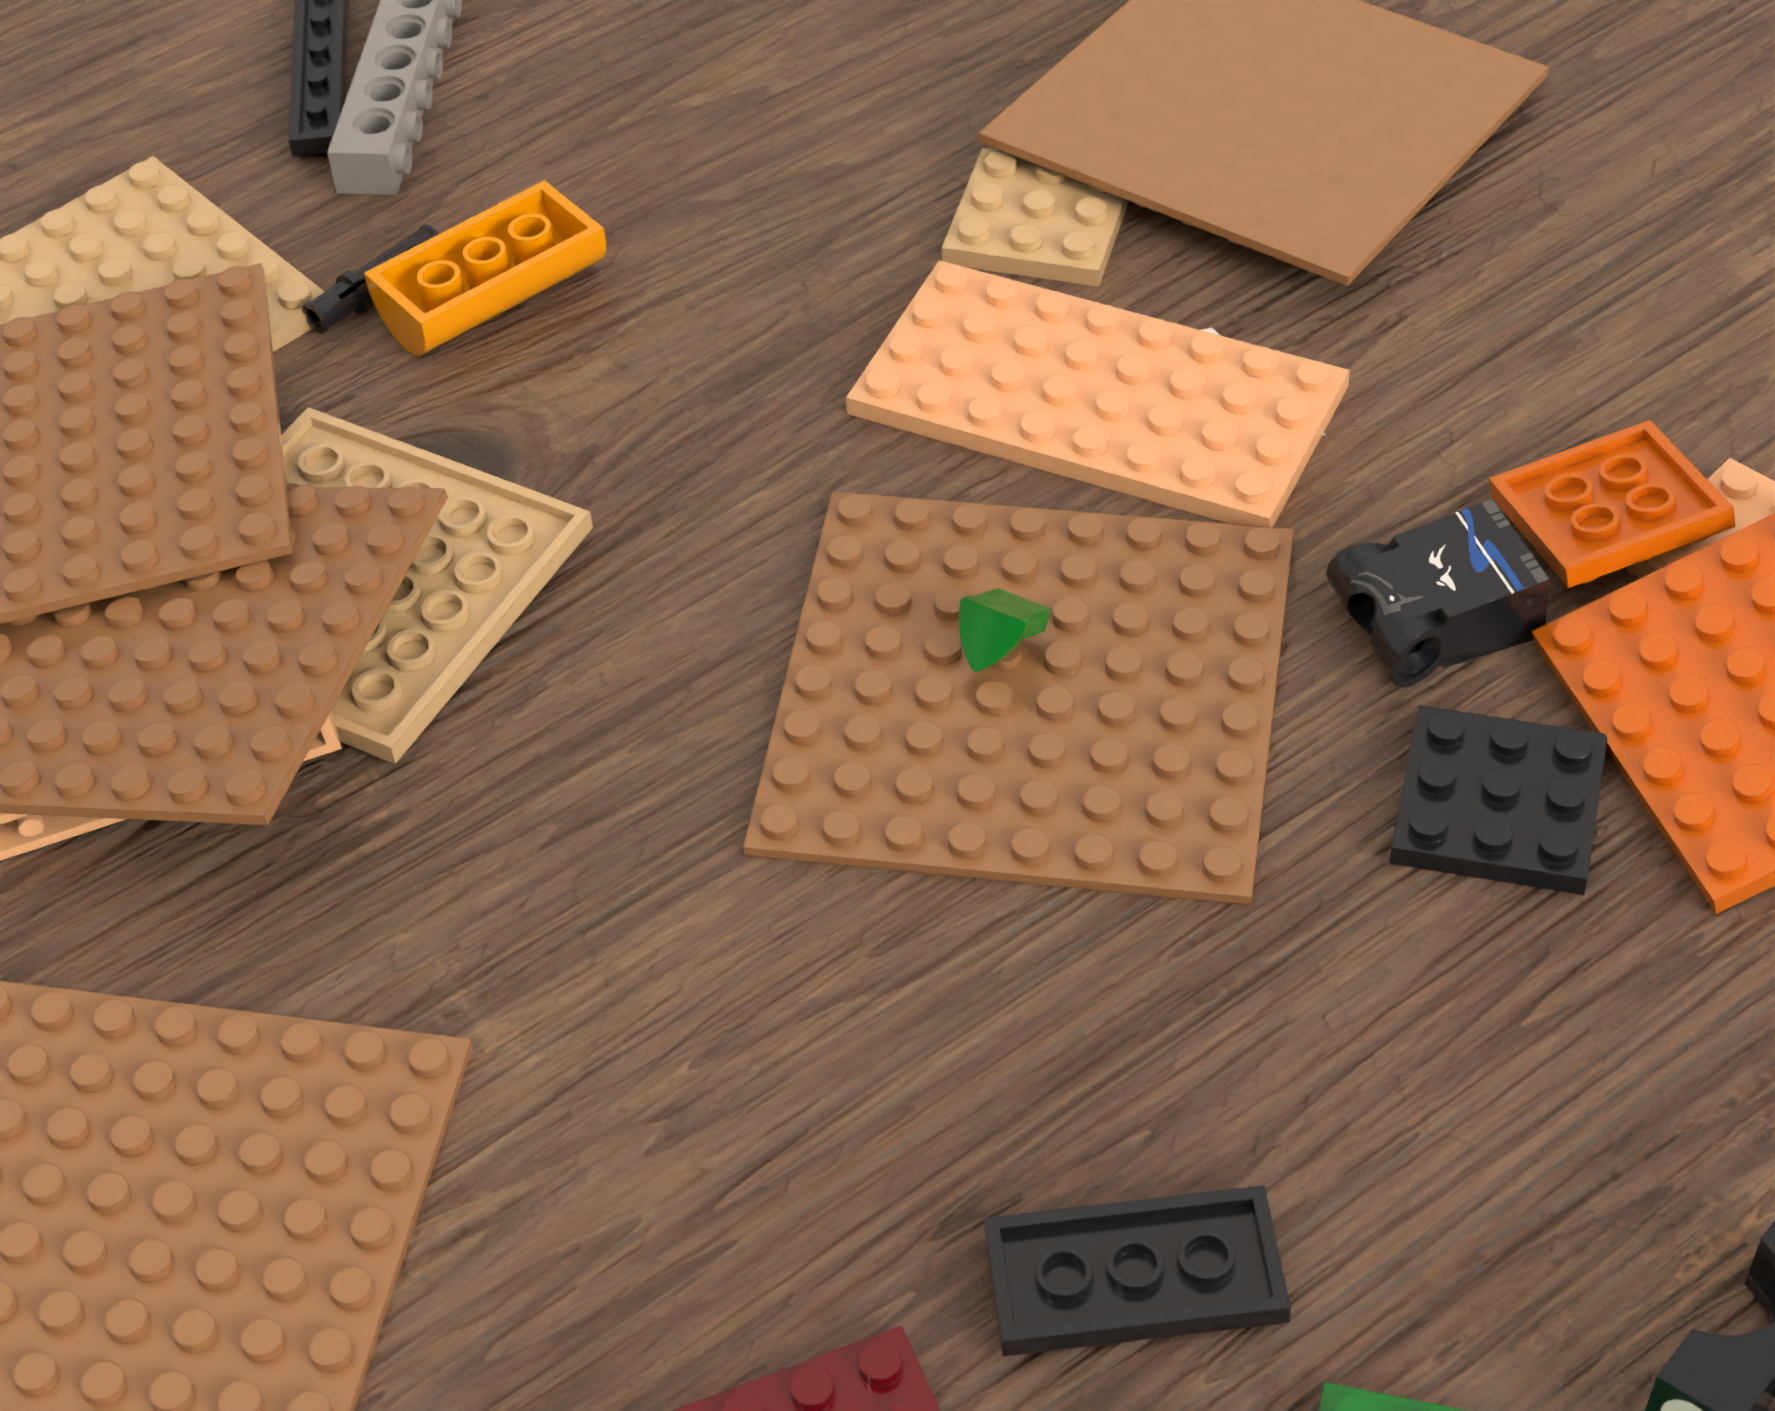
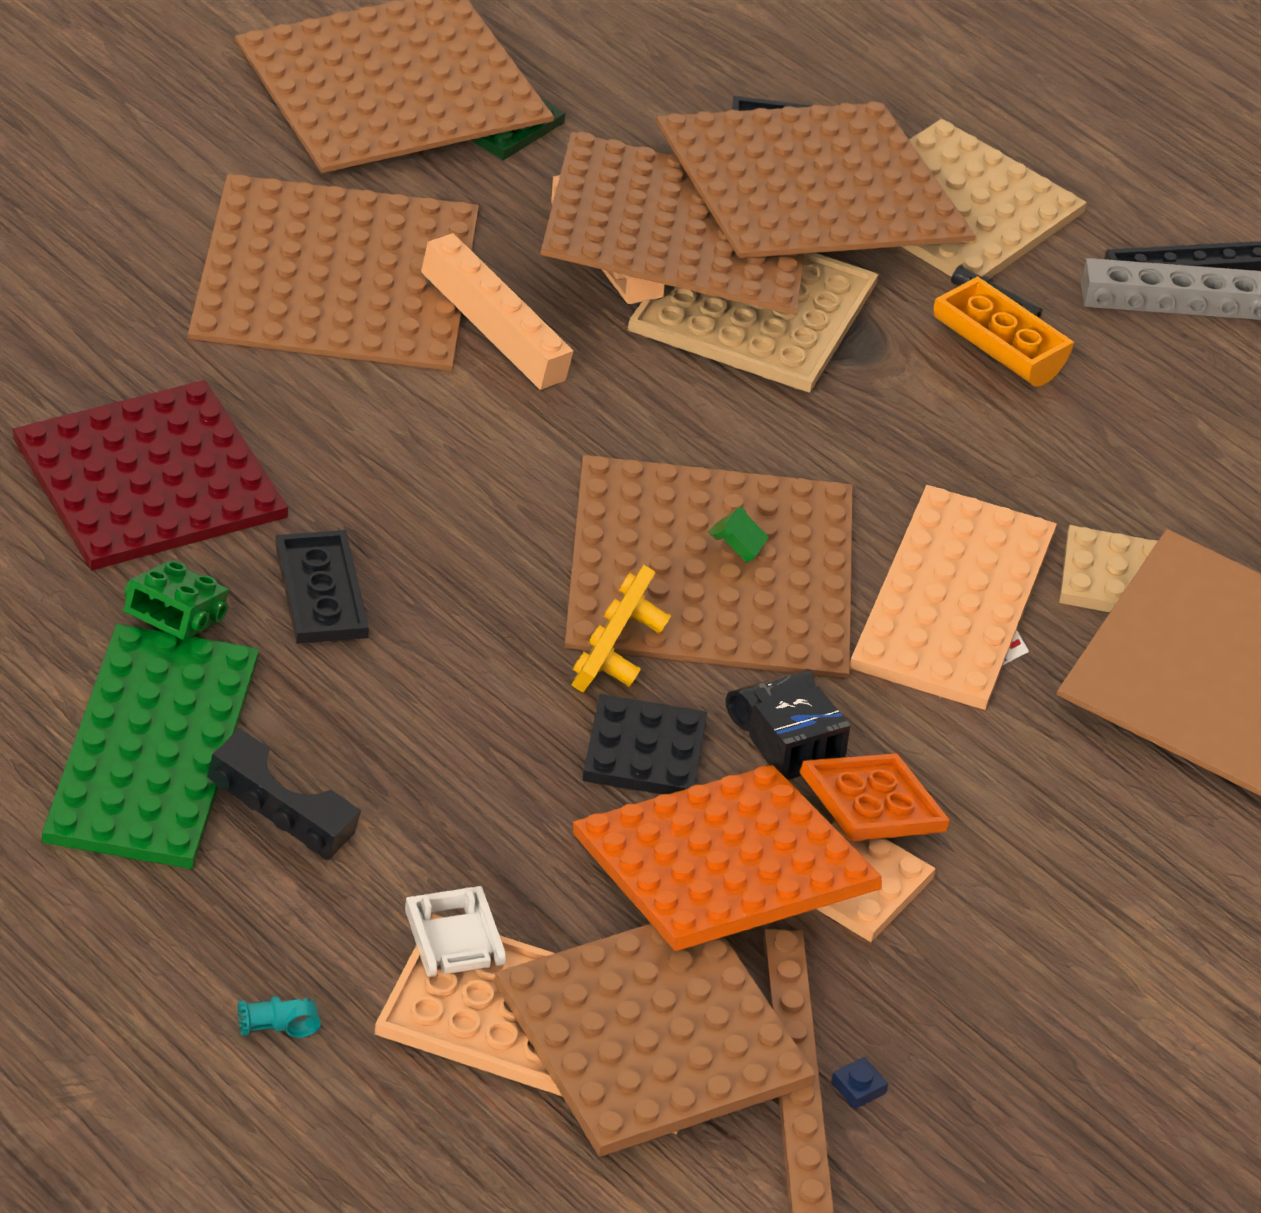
camera: 75 degrees right, 5 degrees down
(350, 941) = (497, 311): none -> light nougat brick
(1258, 803) = (602, 654): none -> yellow plate

